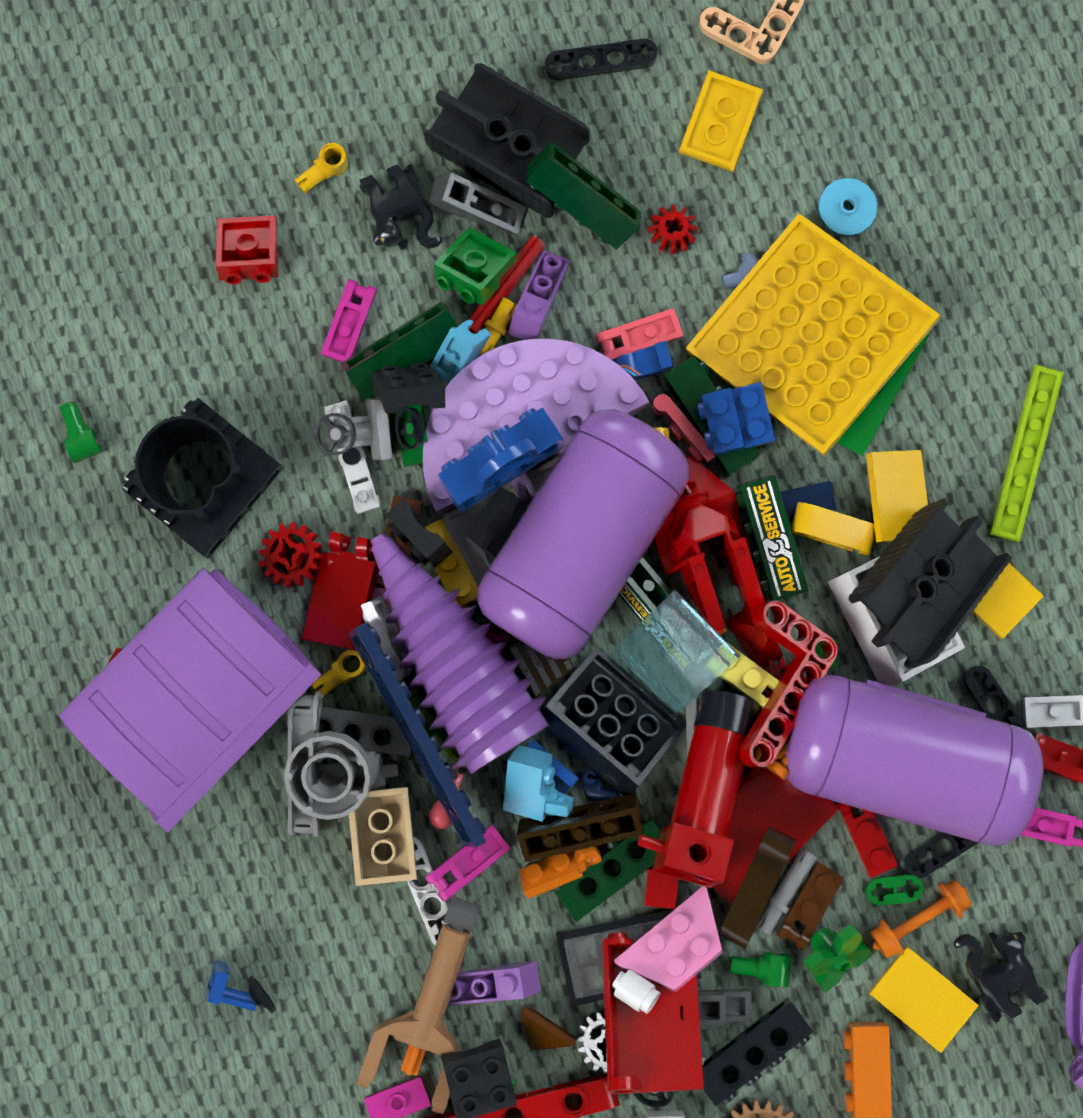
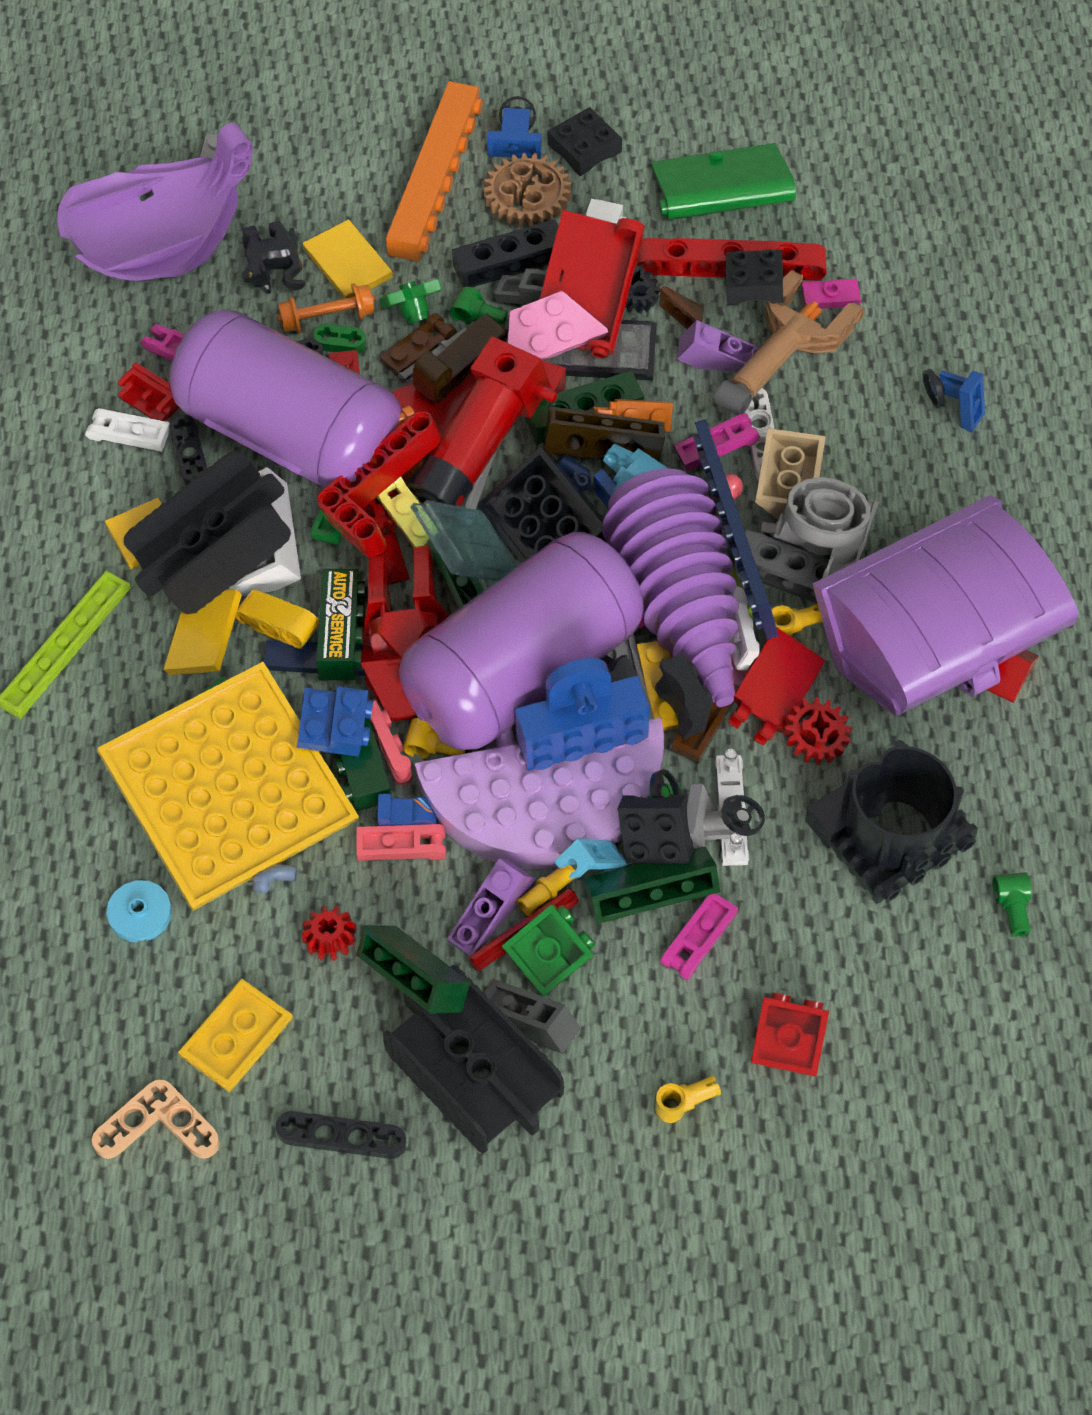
camera: 165 degrees left, 25 degrees down
(398, 204) = (613, 1036): black animal -> none
(635, 991) = (596, 298): white brick -> none

